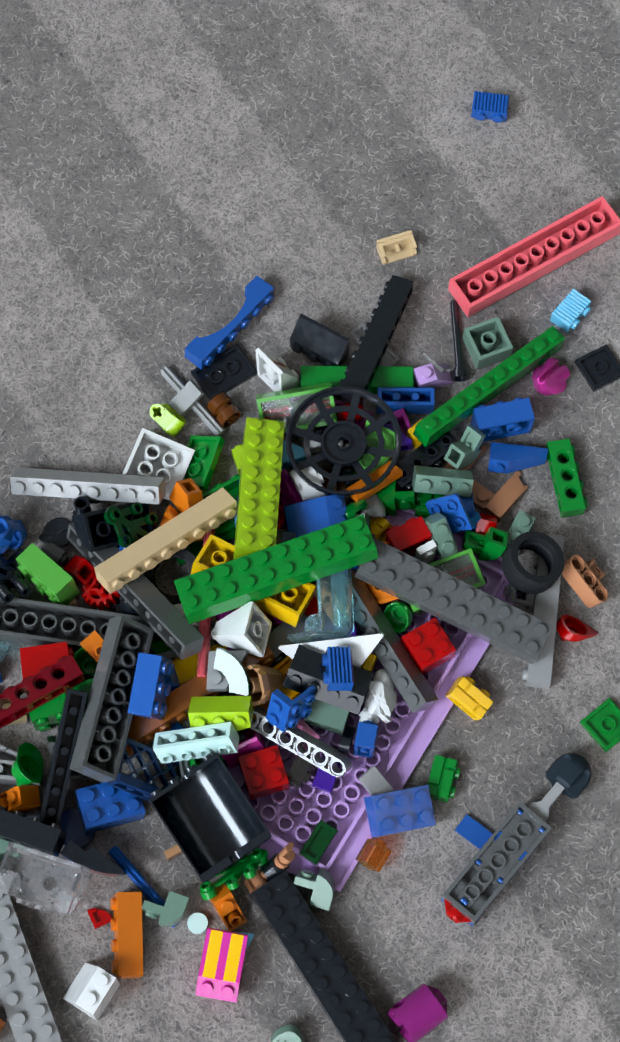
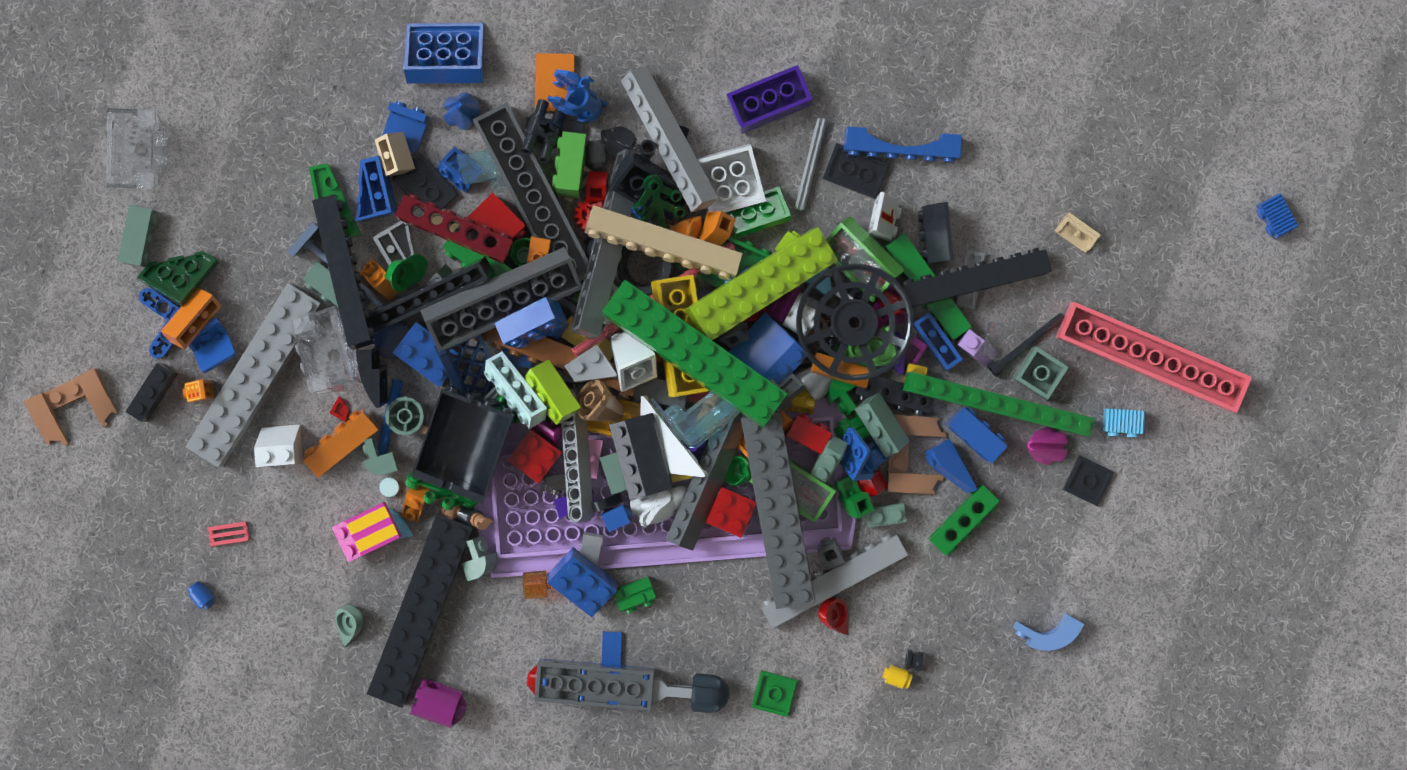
camera: 55 degrees right, 20 degrees up
(117, 394) = (769, 99): none -> dark purple brick
(147, 859) = (405, 416): none -> sand green cylinder
(169, 420) = (778, 158): lime piece -> none
(186, 398) = (805, 158): light grey tile -> none
(222, 407) = (820, 197): reddish brown wheel -> none
(234, 671) = (591, 376): tile -> none
(286, 712) = (584, 444): blue bracket -> none
(318, 842) = (513, 536): dark green tile -> none
(338, 668) = (651, 461): blue brick -> none
(352, 508) = (803, 372): green tile -> none
(426, 552) = (805, 457): white plate -> none
(467, 449) = (924, 423): sand green brick -> none
(469, 698) = (714, 571): yellow brick -> none
(546, 548) = (878, 561): black tyre -> none
(585, 580) = (882, 597): nougat piece -> none

